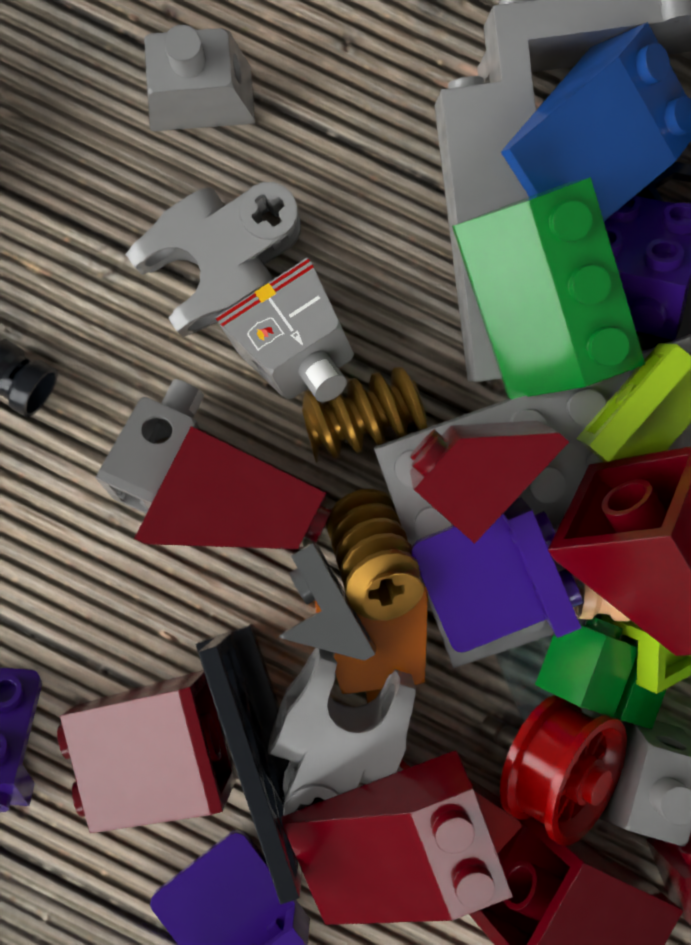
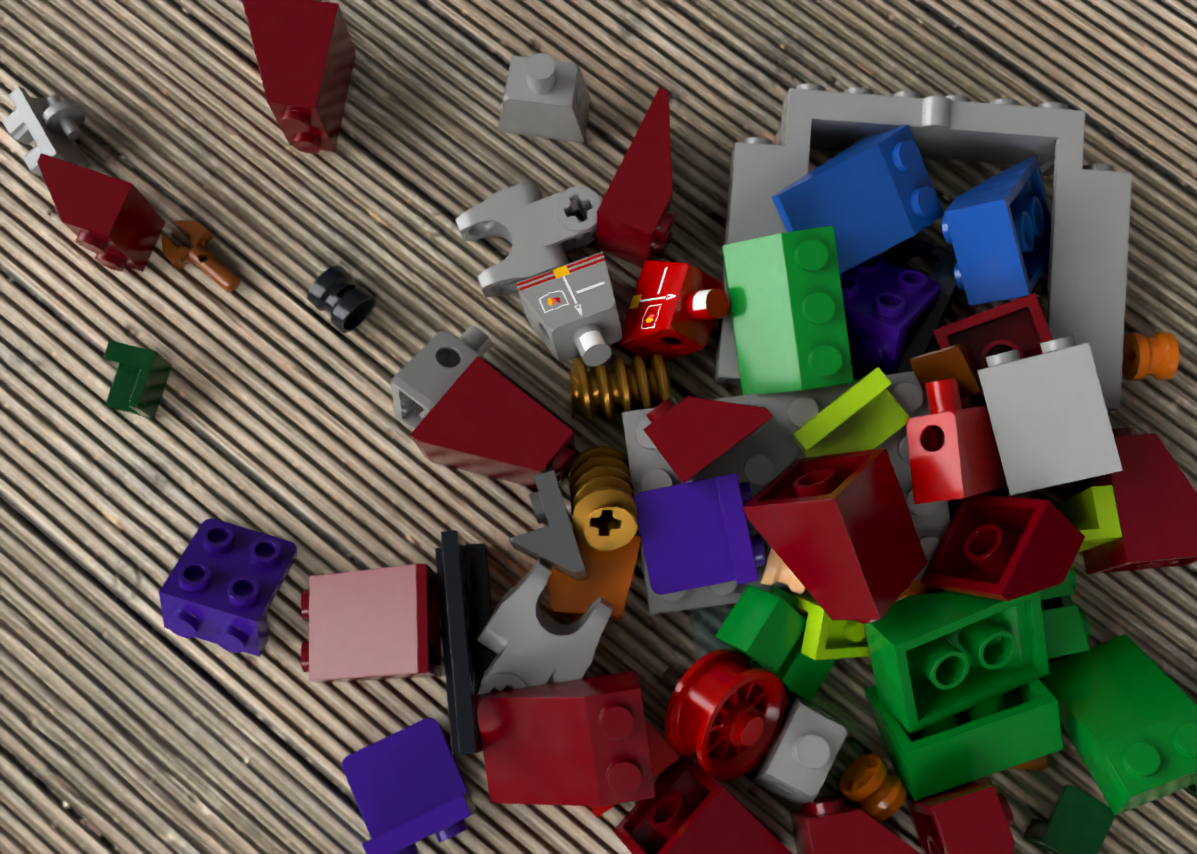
camera: 15 degrees right, 10 degrees down
(338, 194) = (636, 209): none -> dark red slope
(406, 310) = (672, 310): none -> red torso

